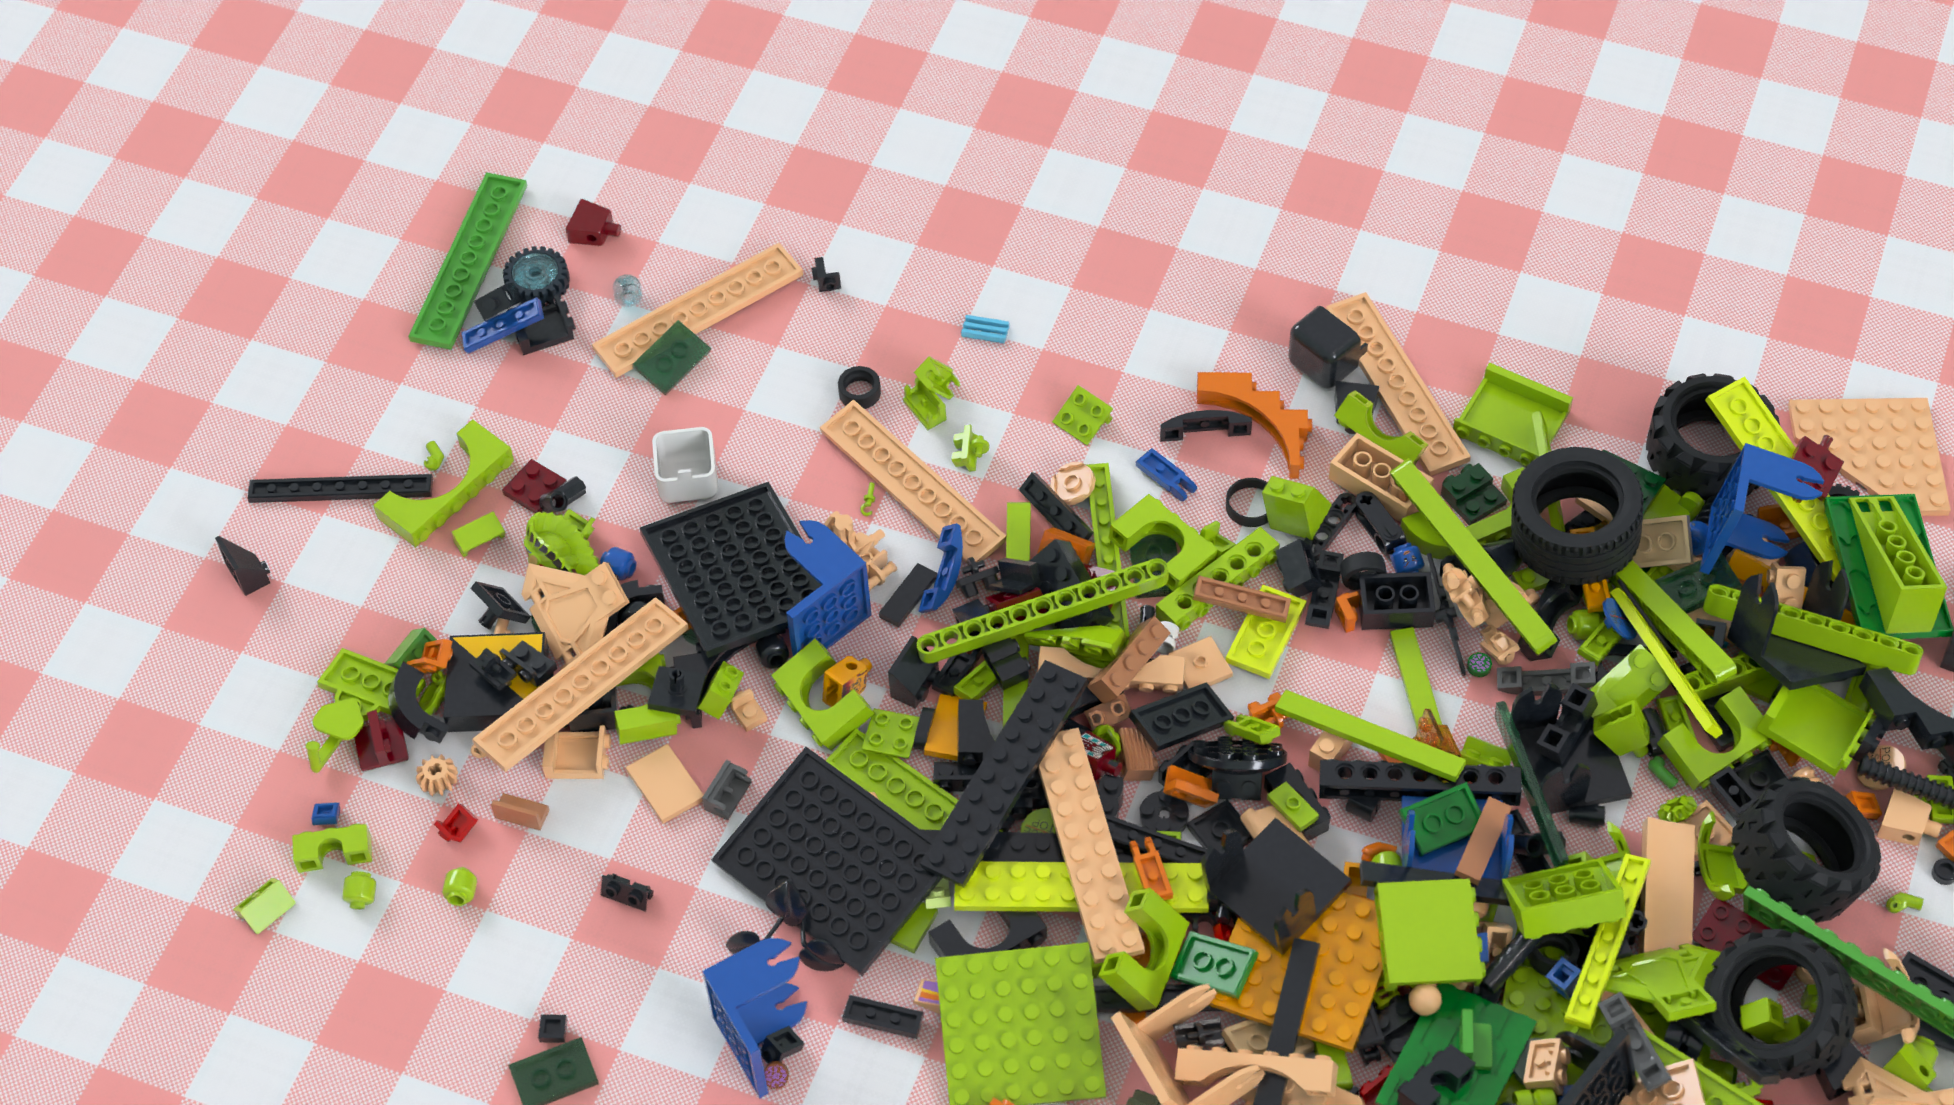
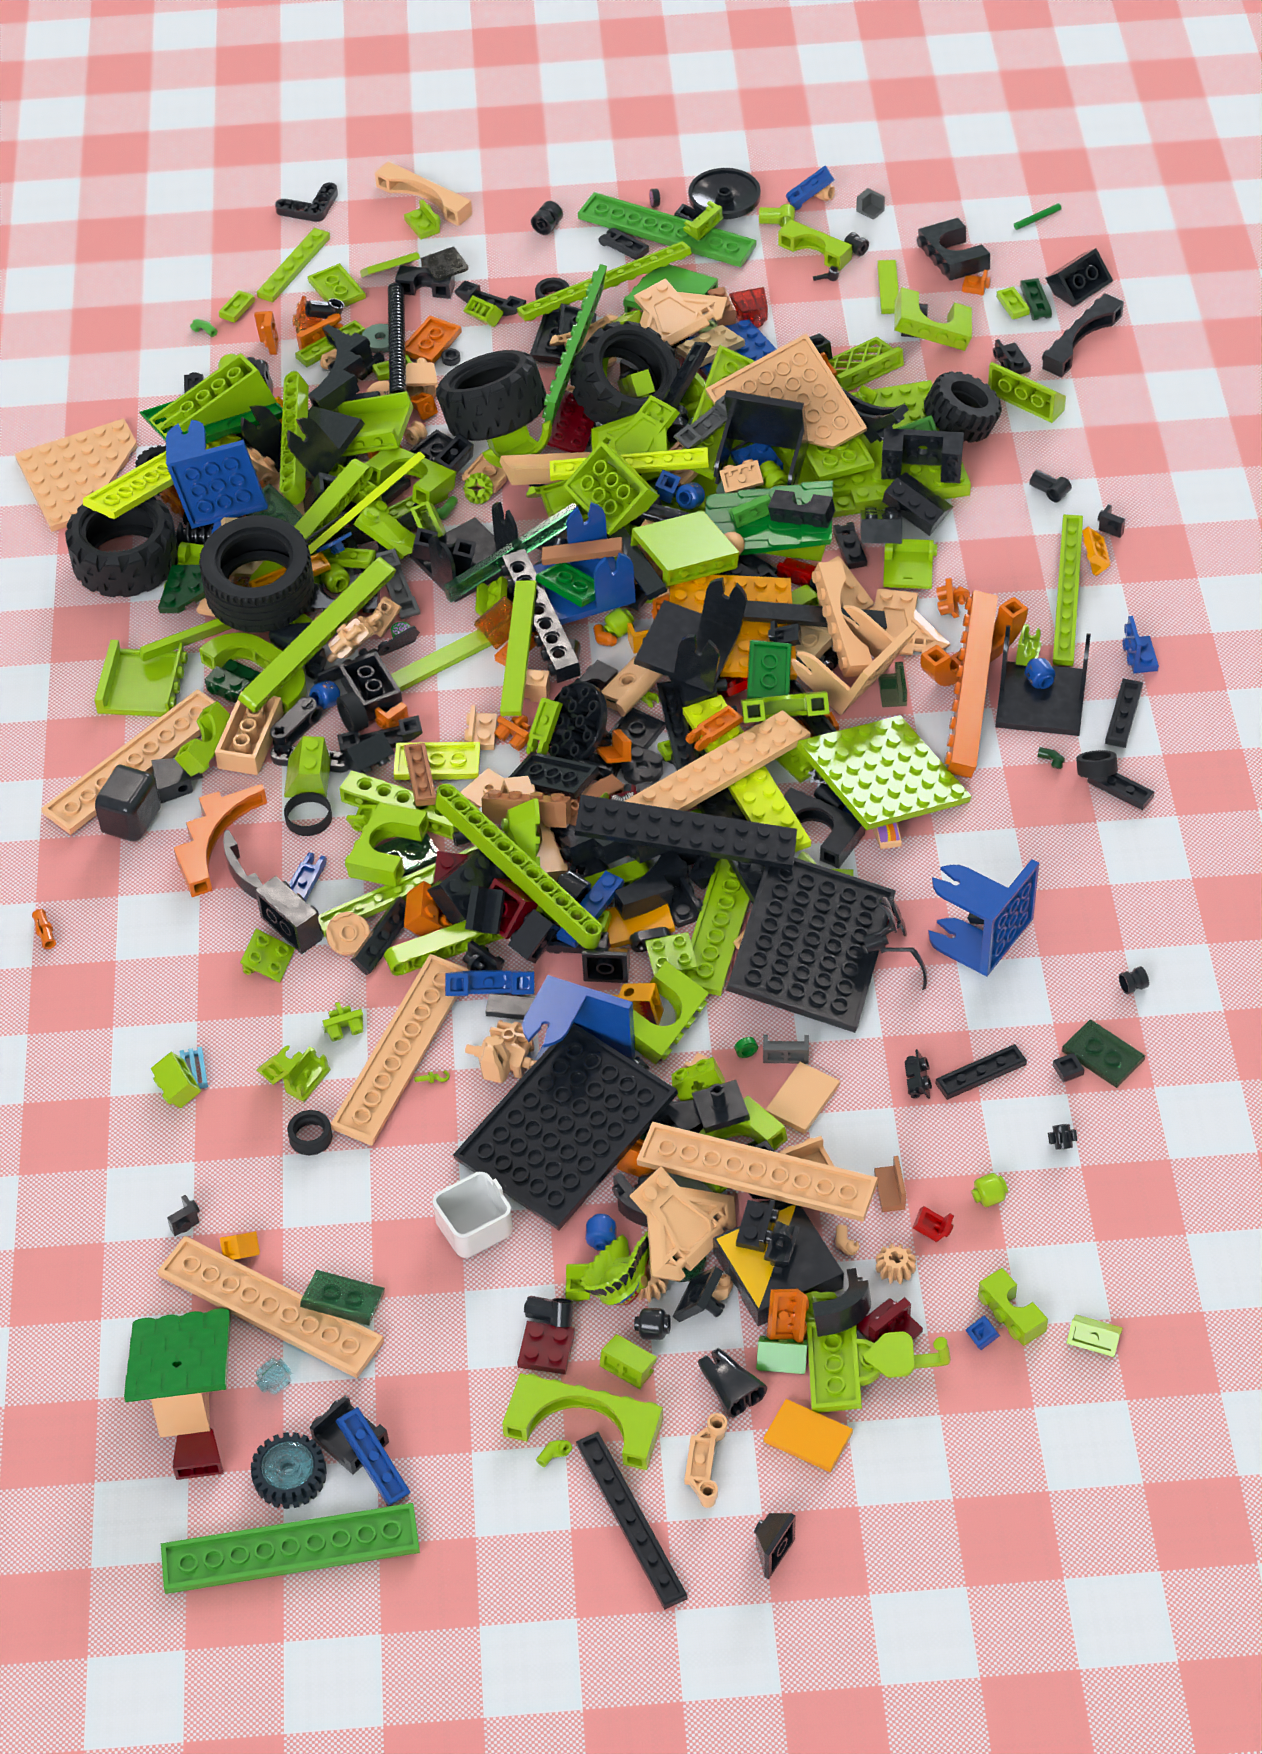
camera: 115 degrees left, 5 degrees down
(323, 639) = (808, 1435): none -> light orange tile
(349, 550) = (701, 1459): none -> light nougat plate
(359, 890) = (1038, 1264): lime head -> none
(408, 600) = (731, 1382): none -> black piece
(476, 978) = (1062, 1136): none -> black gear
(497, 301) = (349, 1472): black torso -> none
(499, 564) = (652, 1323): none -> black head
(600, 952) = (981, 1071): none -> black tile
(666, 215) = (177, 1366): none -> green piece
(746, 756) = (746, 1047): none -> green tile
(770, 305) = (240, 1245): none -> light orange panel
(883, 1016) = (920, 863): black plate -> none
(972, 305) = (175, 1080): none -> lime brick
(984, 684) = (596, 901): none -> blue plate
(1114, 436) = (289, 914): none -> black brick
(1212, 261) = (44, 929): none -> orange pin
(1253, 994) = (786, 634): none -> black bracket
(1292, 806) = (605, 675): lime plate -> none
(1293, 679) = (481, 728): none -> light nougat bracket
(1544, 1003) = (690, 495): none -> blue head
(1821, 460) = (144, 456): dark red plate -> none

